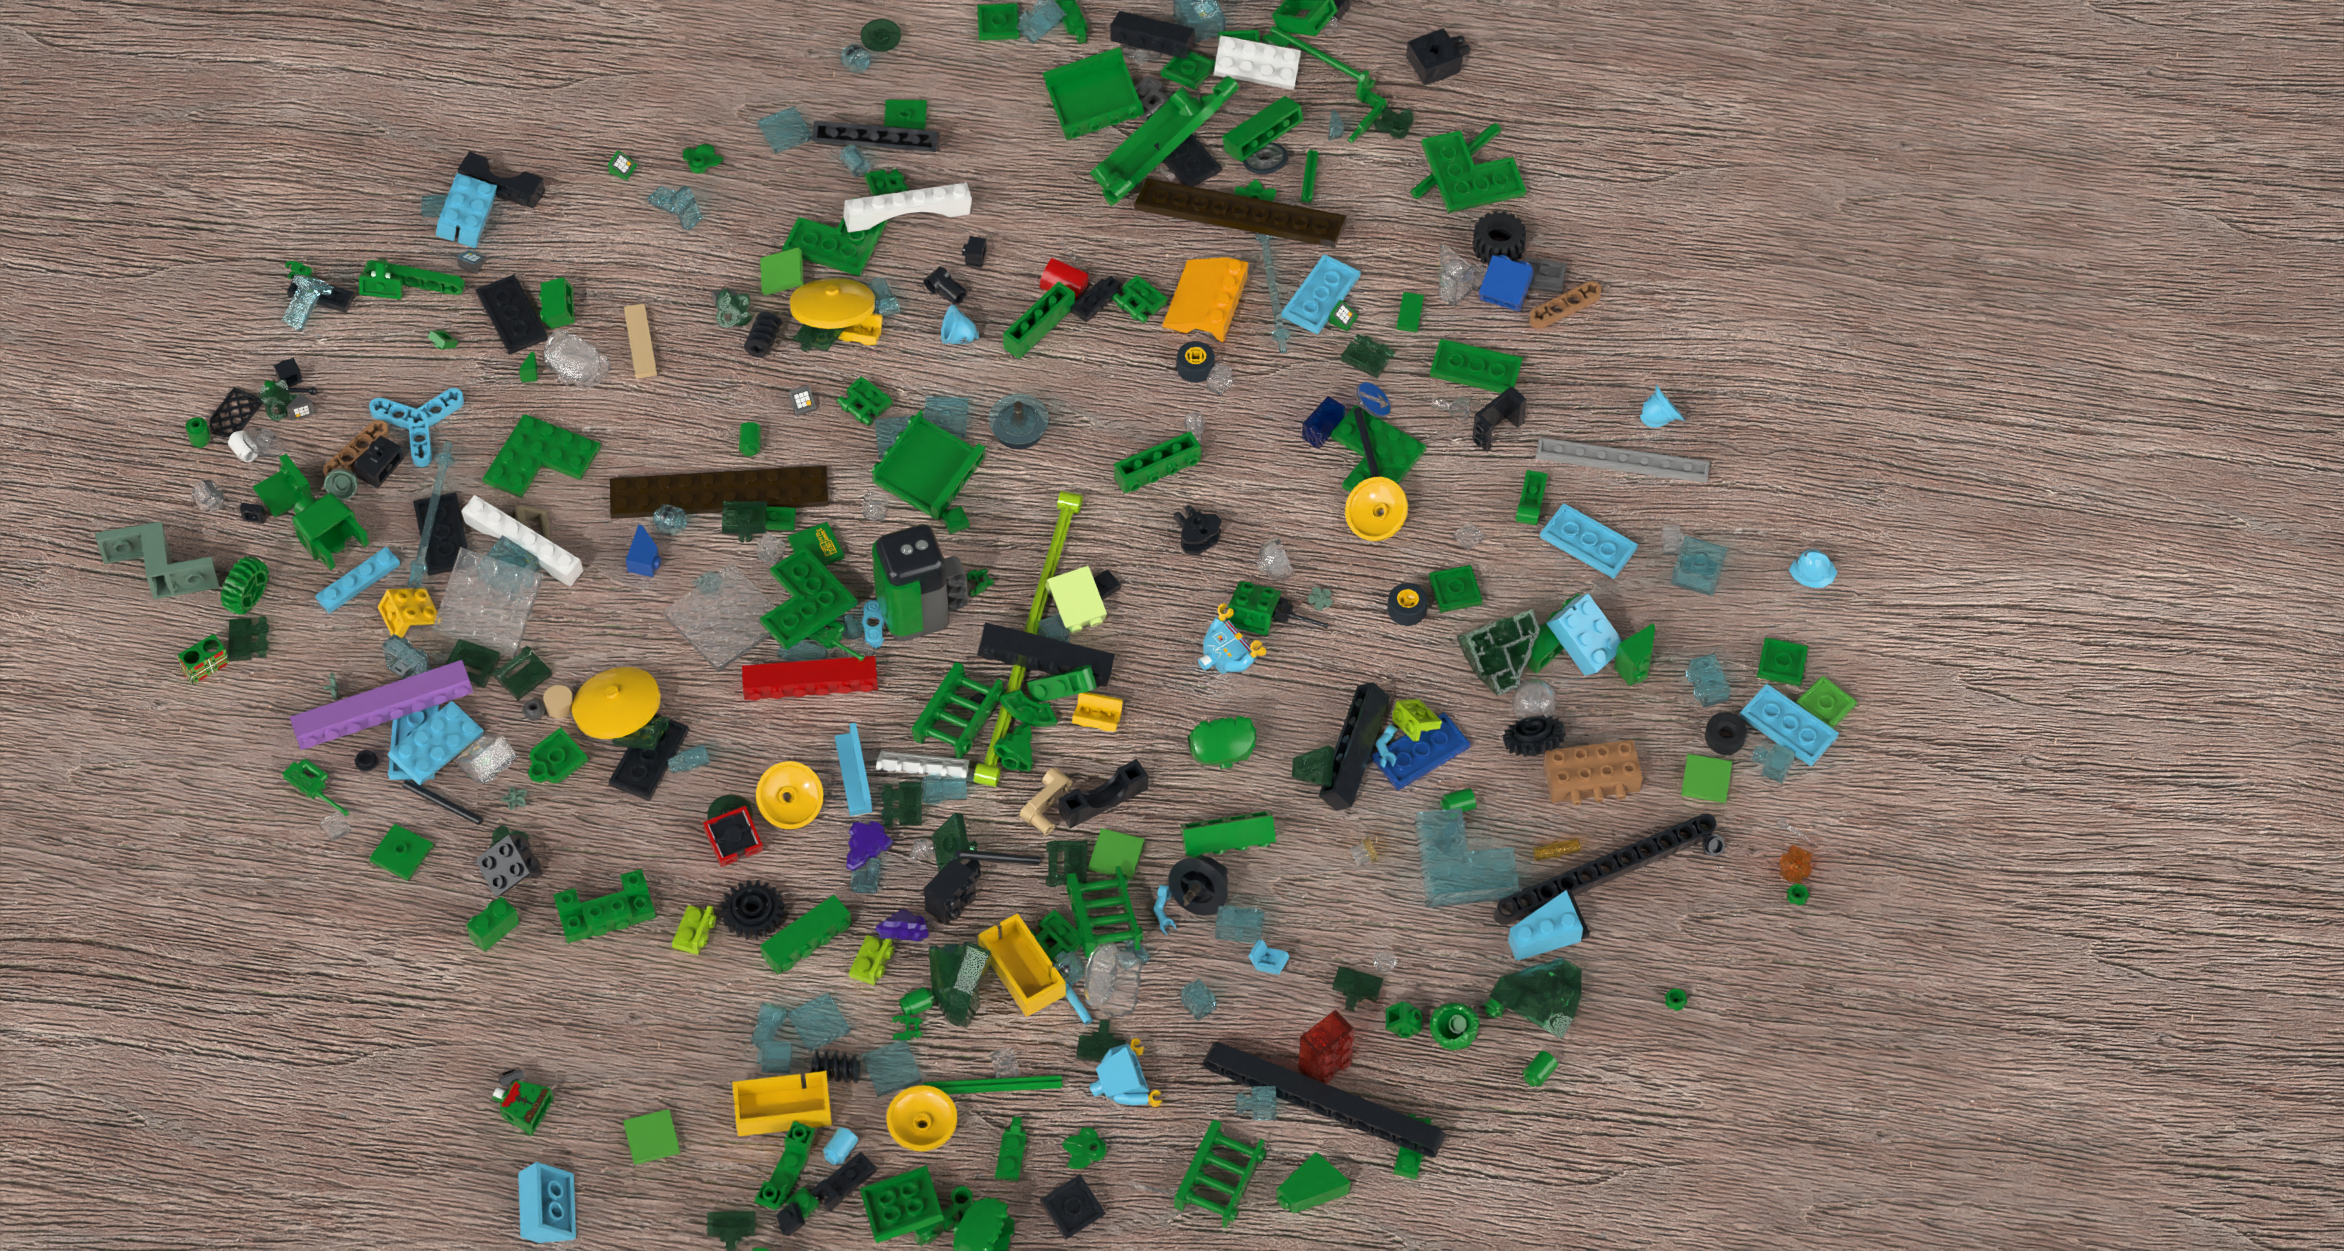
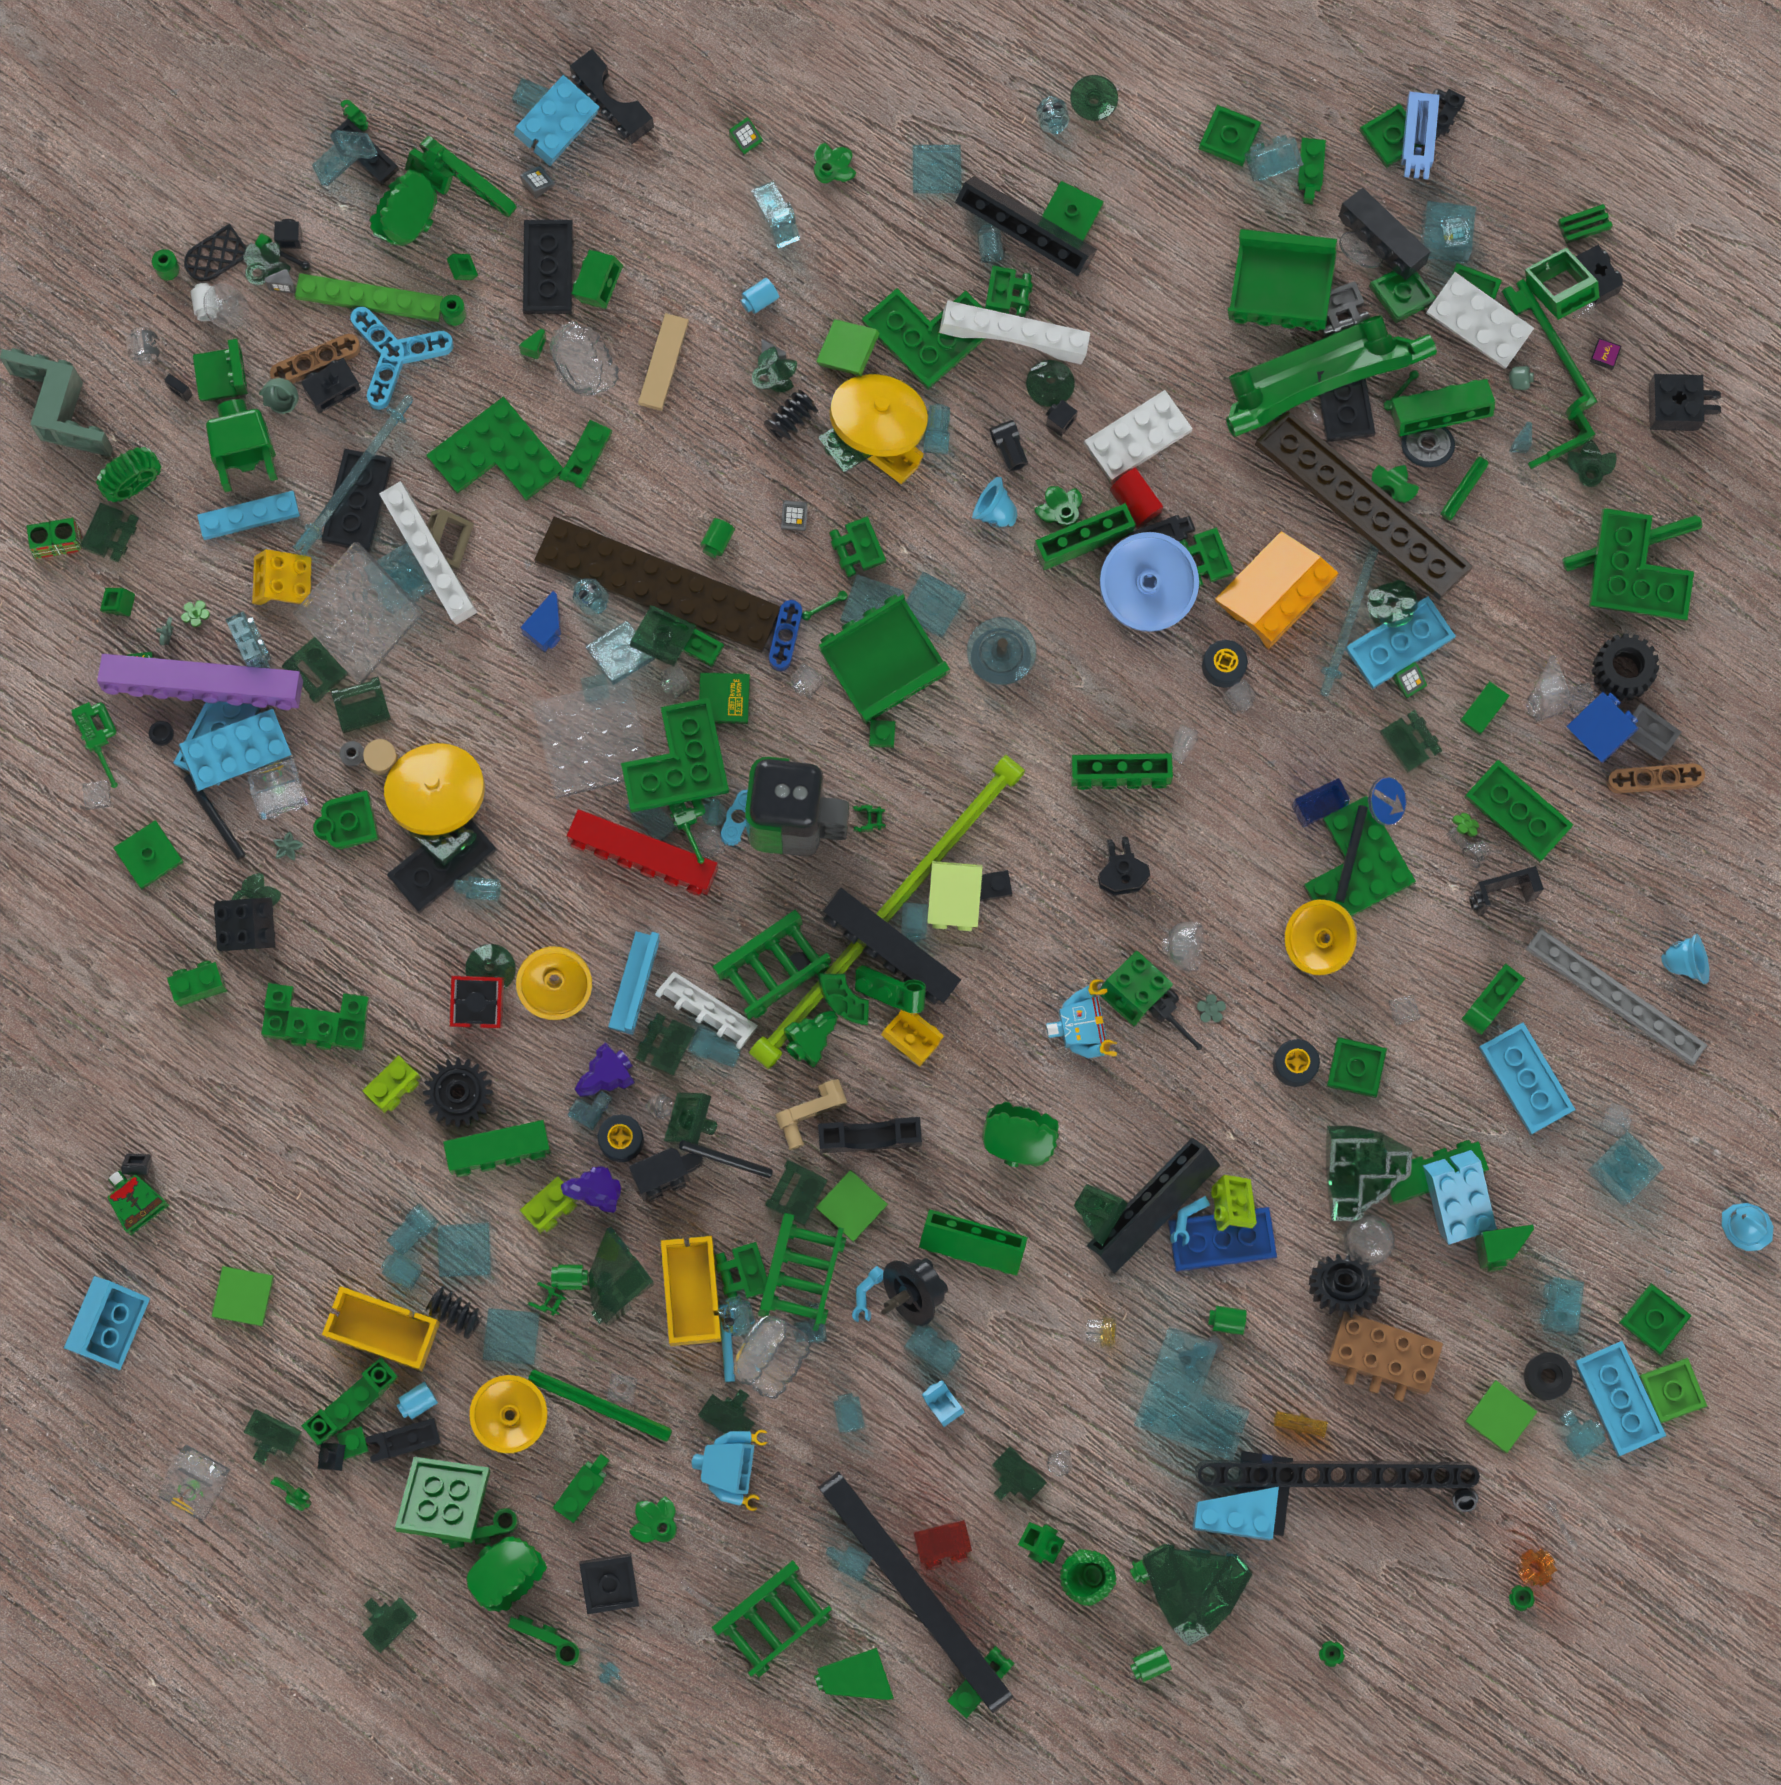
camera: 25 degrees right, 20 degrees up
(279, 684) = (117, 601): none -> green slope
(349, 666) = (193, 614): none -> bright green plant
(376, 316) = (405, 209): none -> green animal
(387, 388) = (373, 297): none -> bright green plate
(452, 370) = (453, 310): none -> green brick
(612, 426) = (586, 454): none -> green plate
(693, 265) = (759, 296): none -> medium azure brick
(715, 549) = (615, 655): none -> clear light blue tile
(839, 492) = (783, 616): none -> blue beam
(870, 442) = (842, 596): none -> green hinge
(905, 876) = (616, 1131): none -> black wheel
(952, 241) = (1044, 392): none -> clear green dish
(1007, 311) = (1059, 503): none -> green plate
(1040, 241) = (1138, 436): none -> white plate
(1106, 329) = (1149, 581): none -> light blue dish
(1220, 146) = (1413, 375): none -> green hinge
(1300, 269) = (1388, 593): none -> clear green plate
(1309, 89) = (1521, 377): none -> sand green piece
(1363, 49) = (1605, 354): none -> magenta tile
(1441, 393) = (1466, 825): none -> bright green plant

